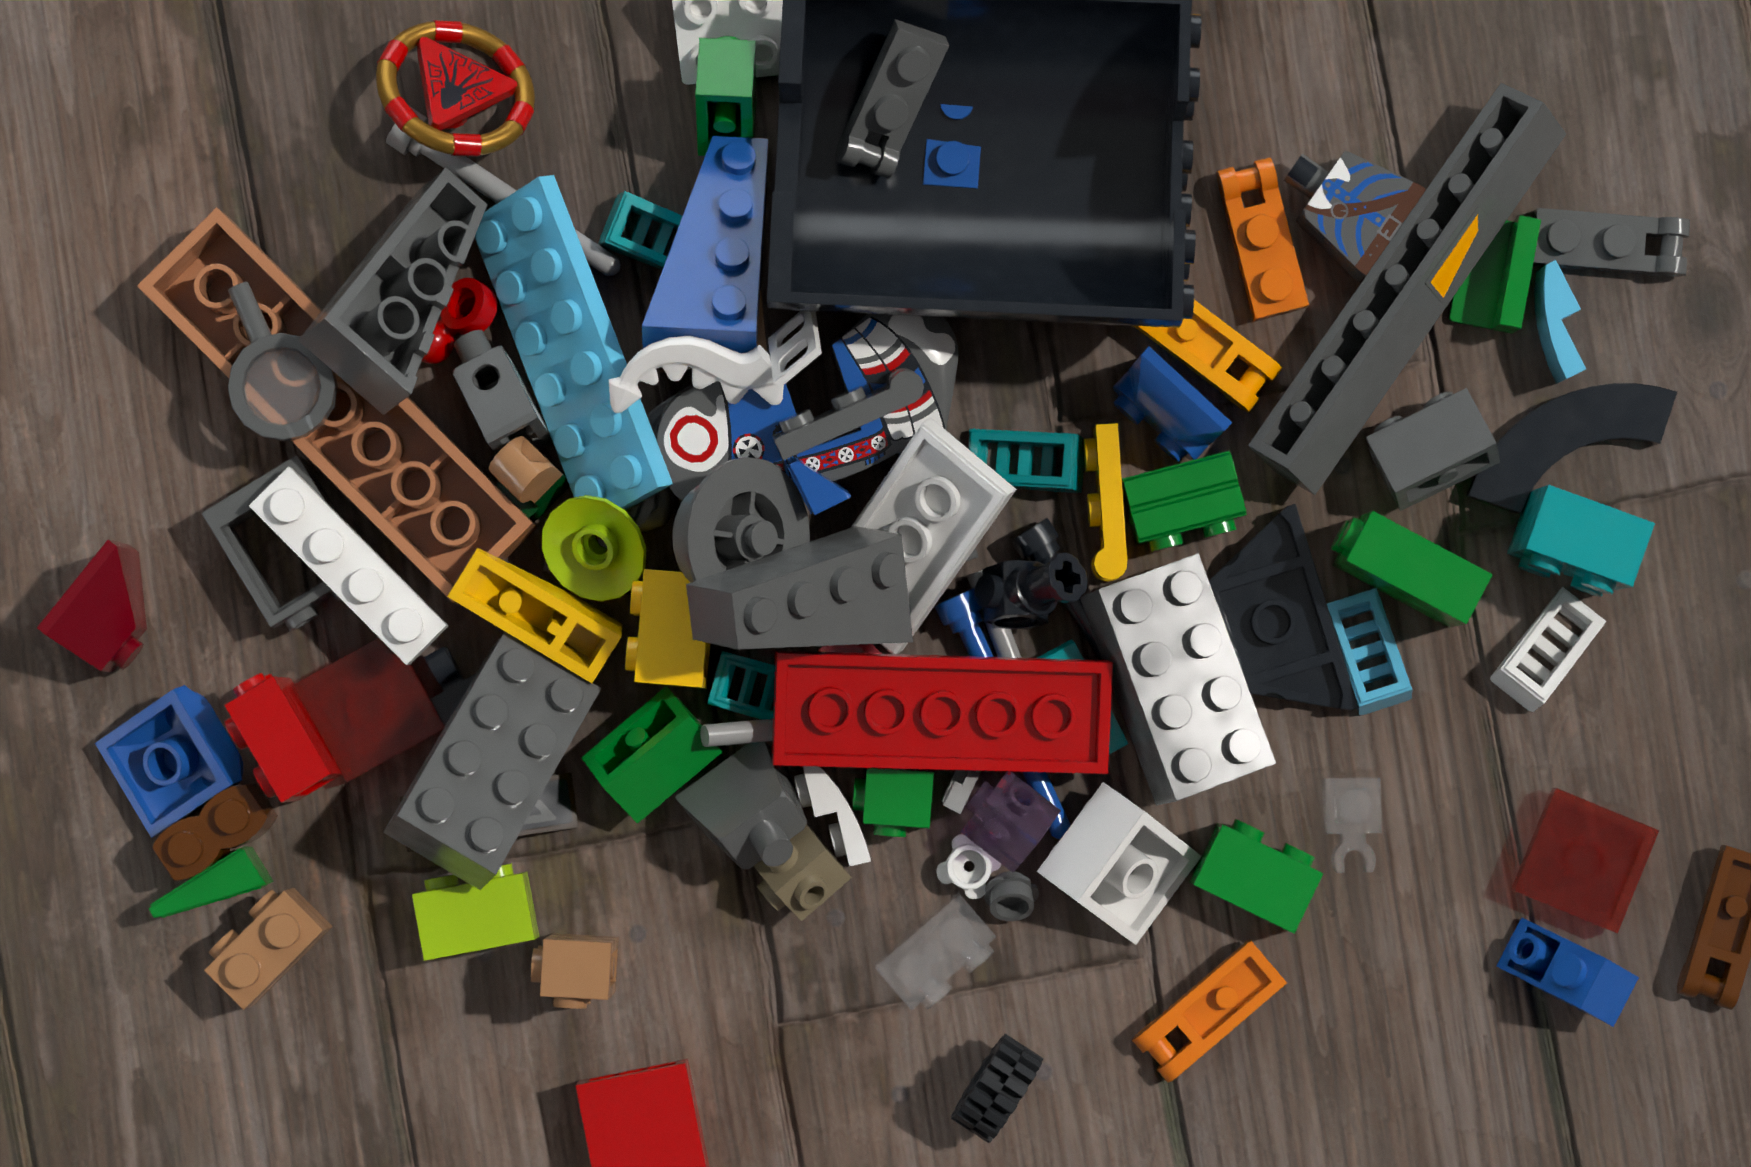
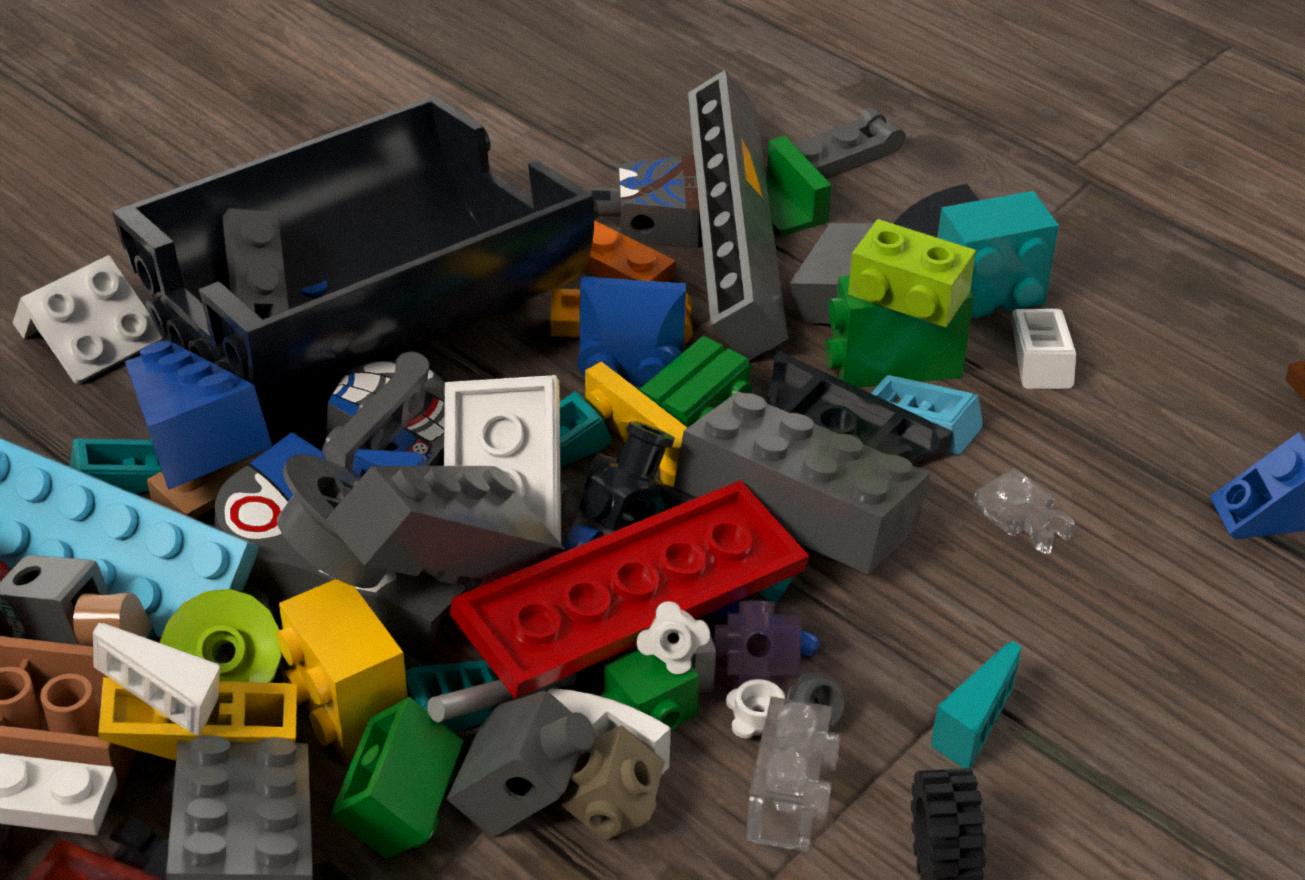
camera: 35 degrees left, 45 degrees down
(516, 603) = (161, 676): none -> white slope
(715, 363) = (230, 435): white piece -> none
(725, 89) = (114, 329): green brick -> none
(925, 795) = (673, 620): none -> white plate
(1116, 994) = (972, 709): none -> teal slope
(1119, 863) = (877, 625): white slope -> none
(1211, 1009) = (1058, 683): orange plate -> none
(1257, 876) = (994, 573): green brick -> none
(1416, 577) = (911, 272): none -> lime brick
(1553, 304) = (855, 191): medium azure slope -> none
(1585, 860) = (1208, 430): clear red plate -> none

